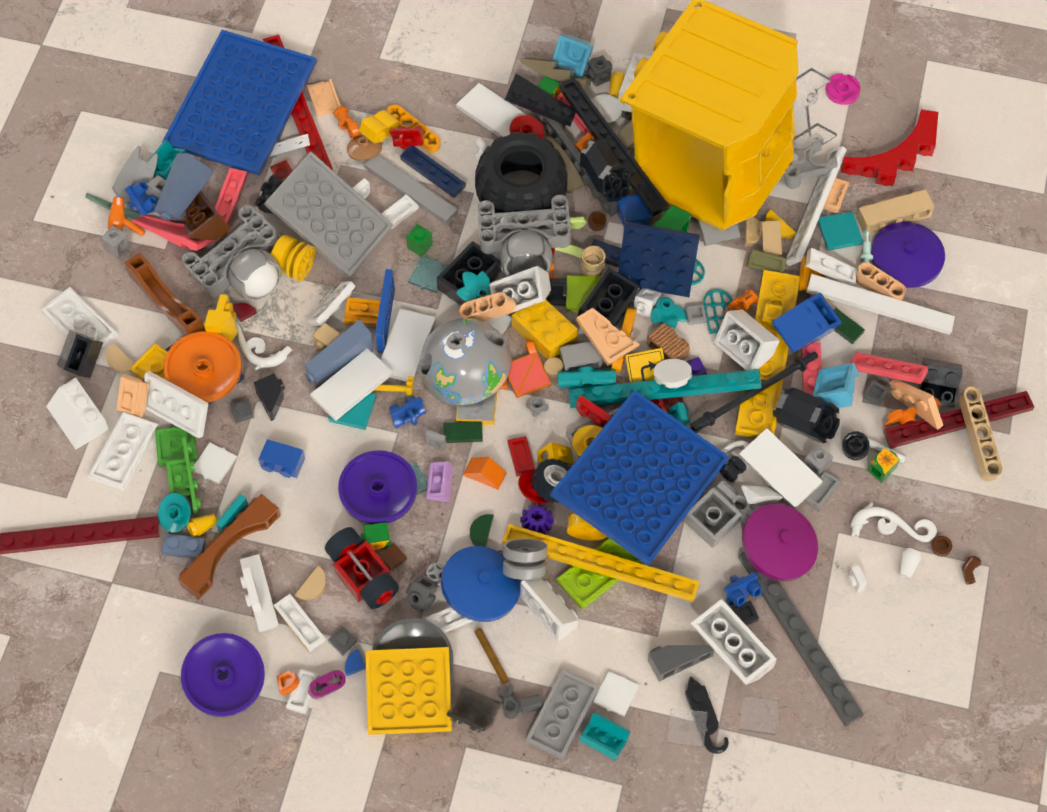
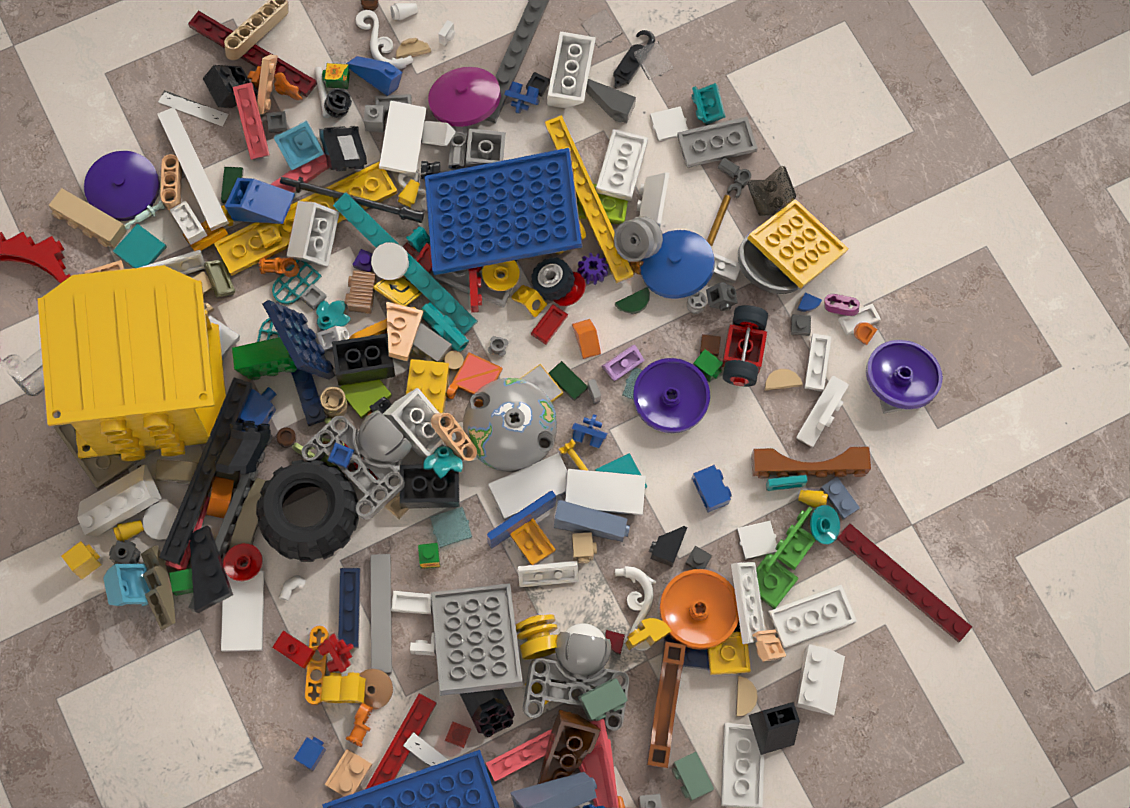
camera: 135 degrees left, 10 degrees up
(105, 282) = (692, 776): none -> sand green brick
(207, 254) = (603, 699): none -> sand green brick
(358, 83) = (310, 753): none -> blue brick
(436, 120) = (294, 649): none -> red plate
(537, 214) = (340, 455): none -> blue tile
(609, 618) = (621, 165): none -> white tile
(617, 41) = (82, 559): none -> yellow brick
(723, 435) = (409, 193): none -> yellow cone
(863, 493) = (378, 73): none -> blue slope
(866, 545) = (412, 47): none -> tan tile
(943, 347) = (193, 108): none -> white sticker

